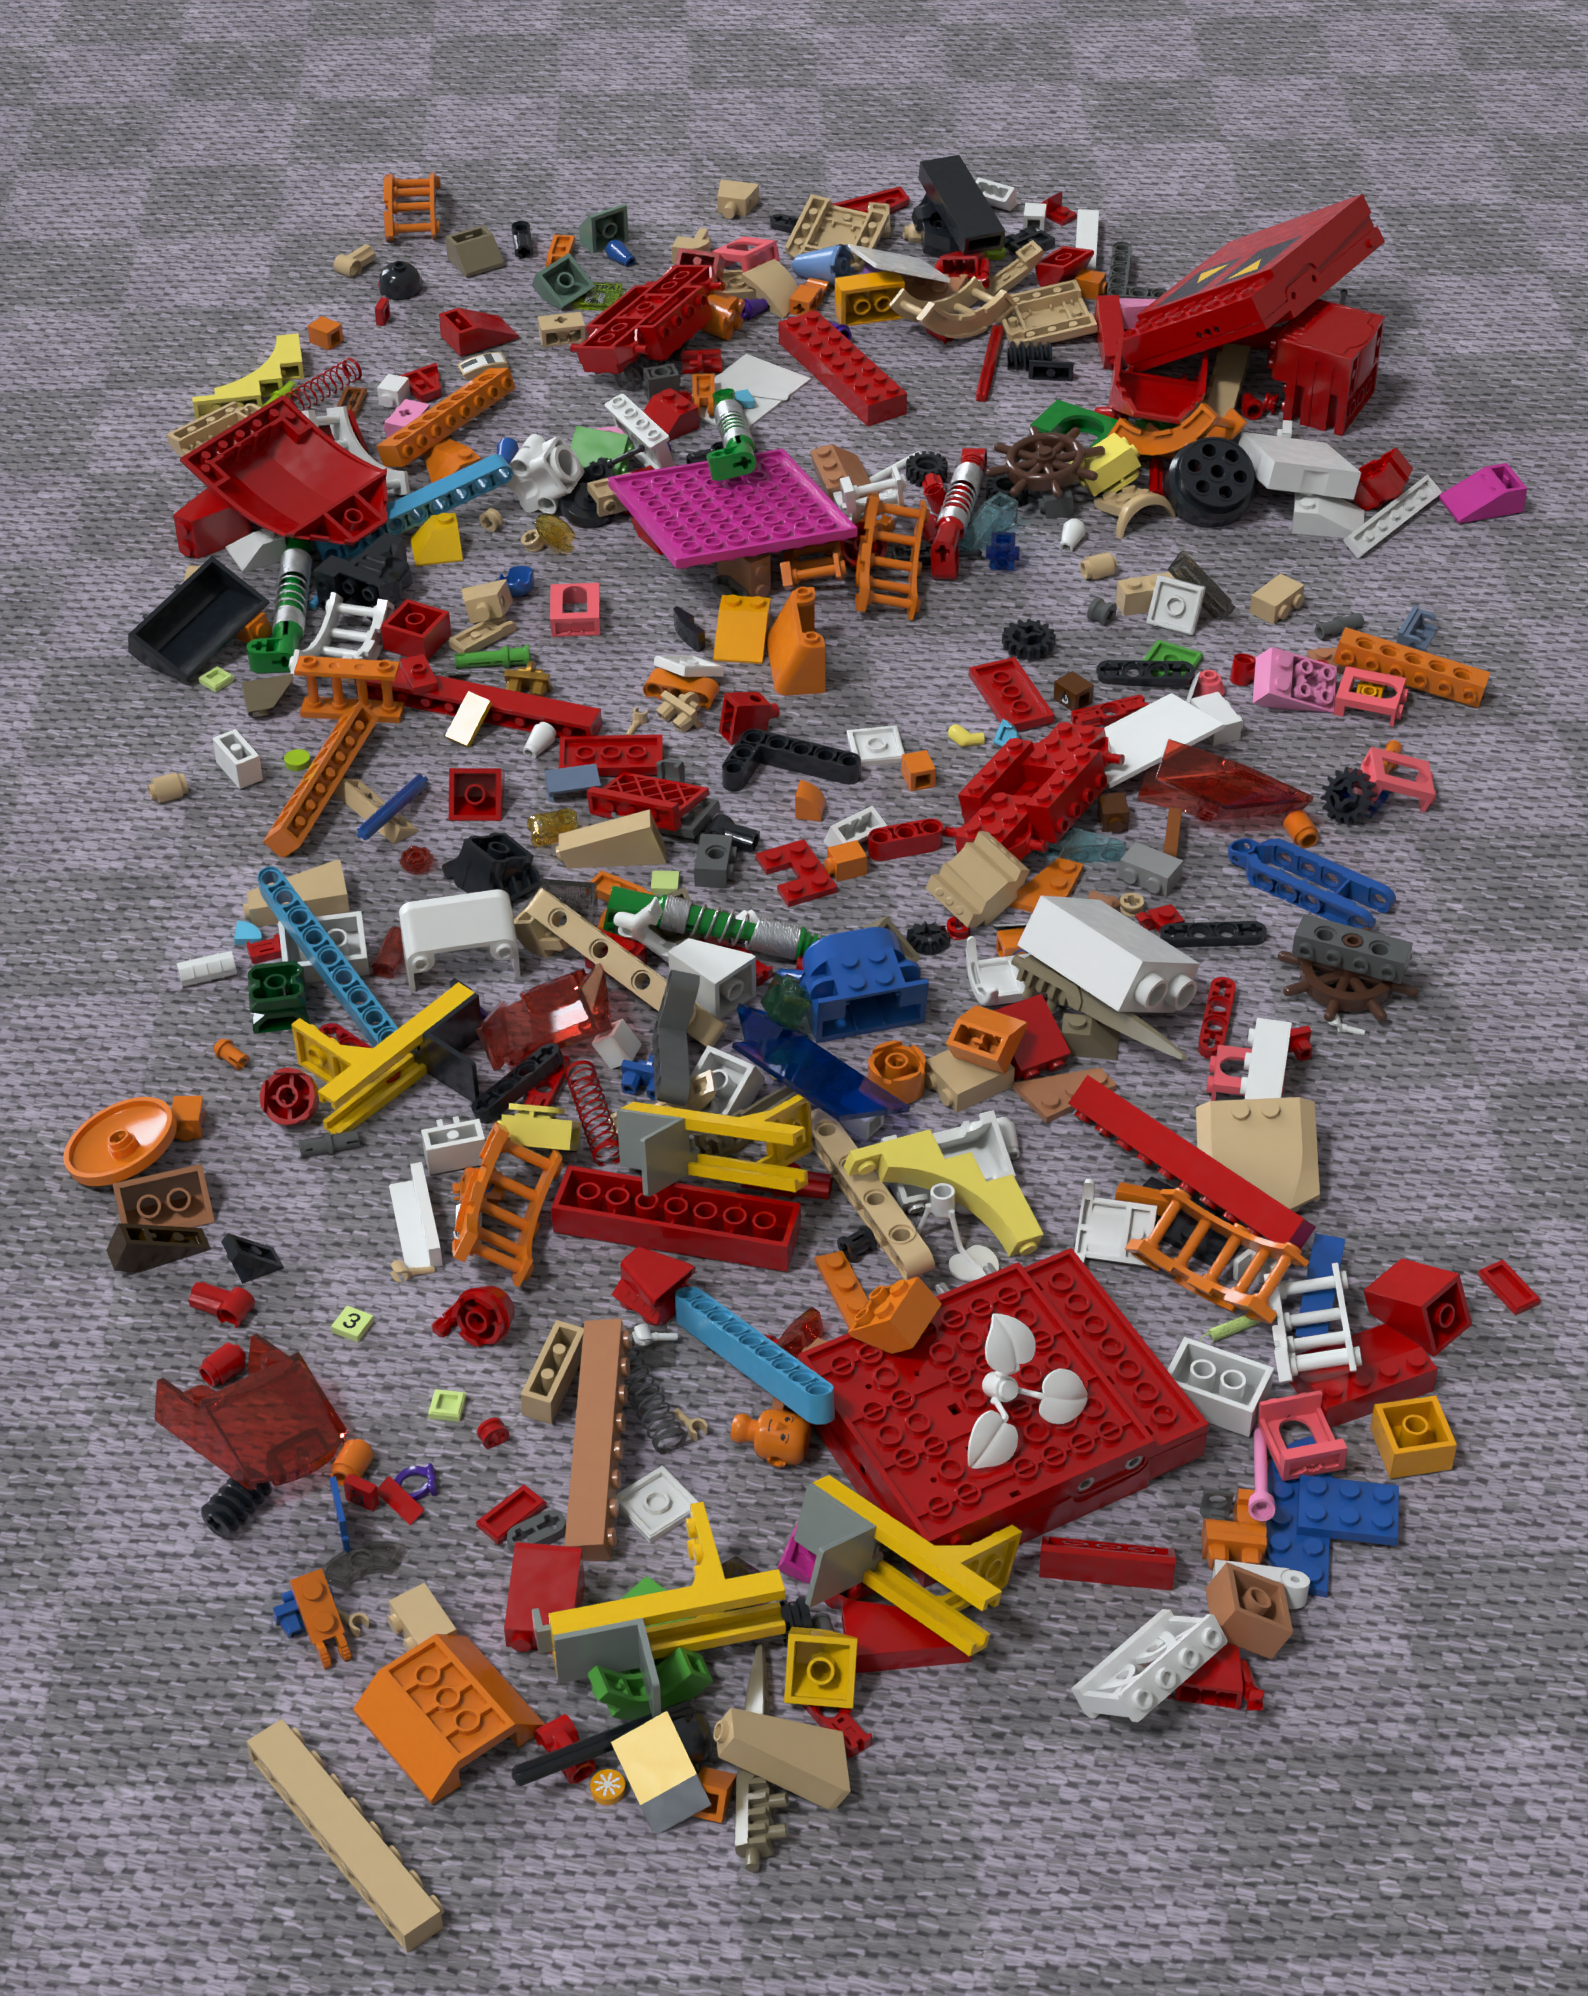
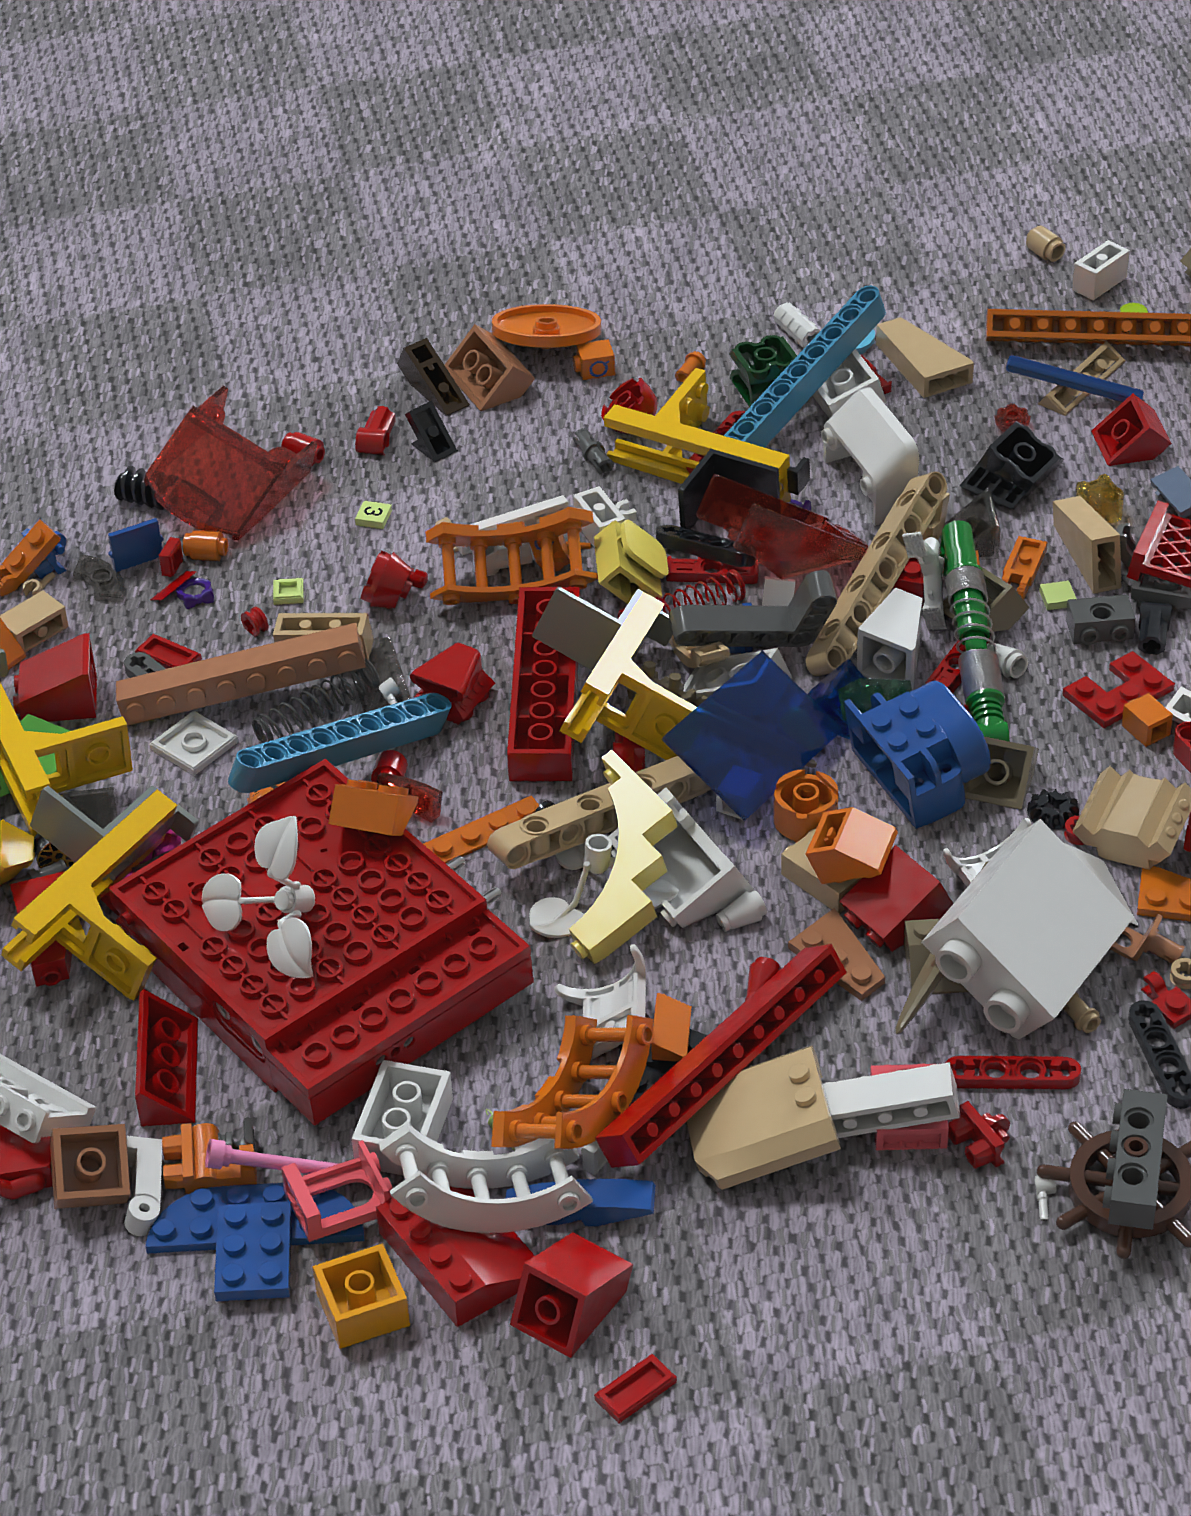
camera: 80 degrees right, 0 degrees up
(1090, 1140) = (760, 973): none -> red cone

